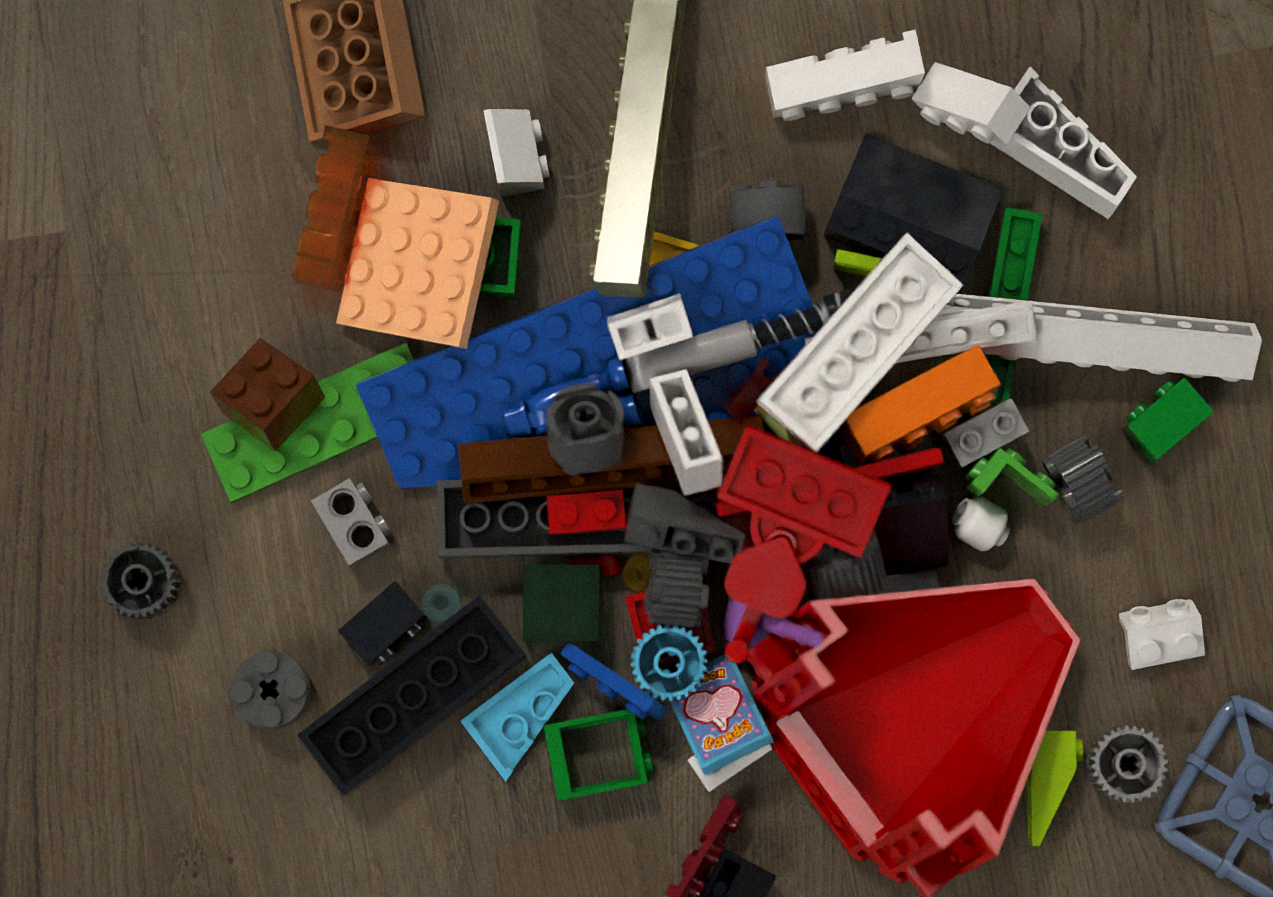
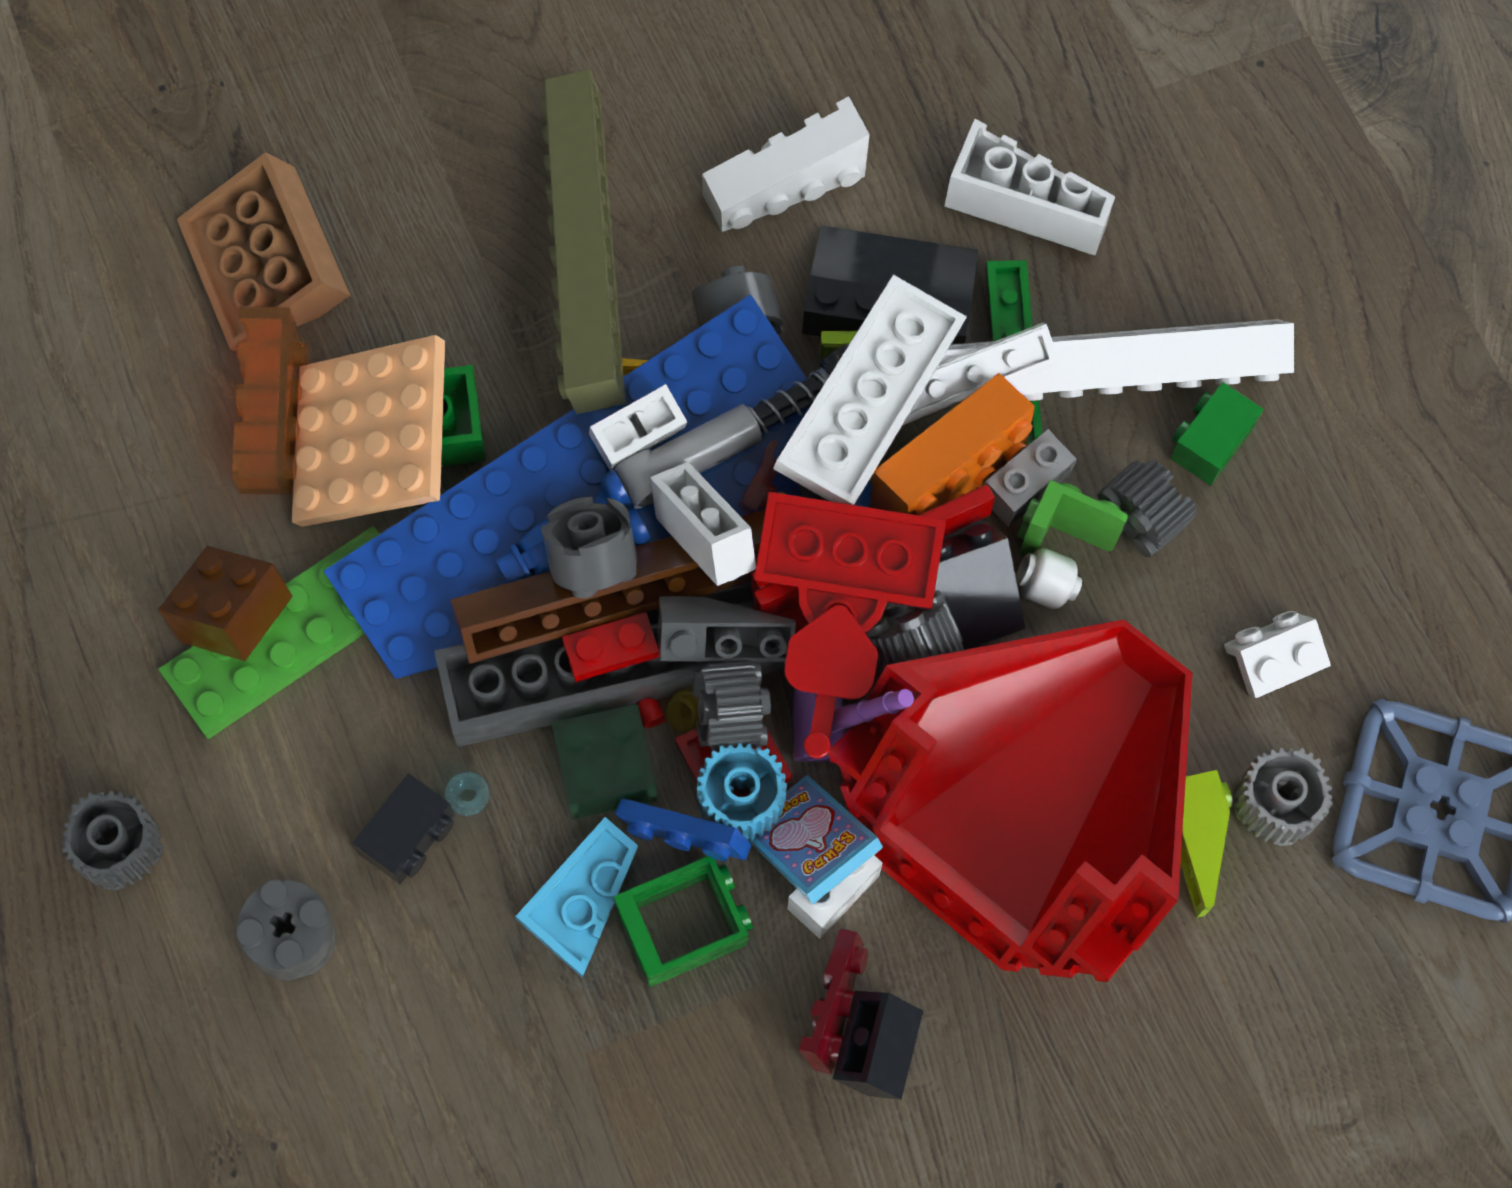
camera: 15 degrees left, 15 degrees down
(344, 527) = (341, 730): light grey brick -> none
(412, 696) = (453, 899): black brick -> none
(515, 151) = (453, 307): white slope -> none
(970, 104) = (924, 160): white brick -> none

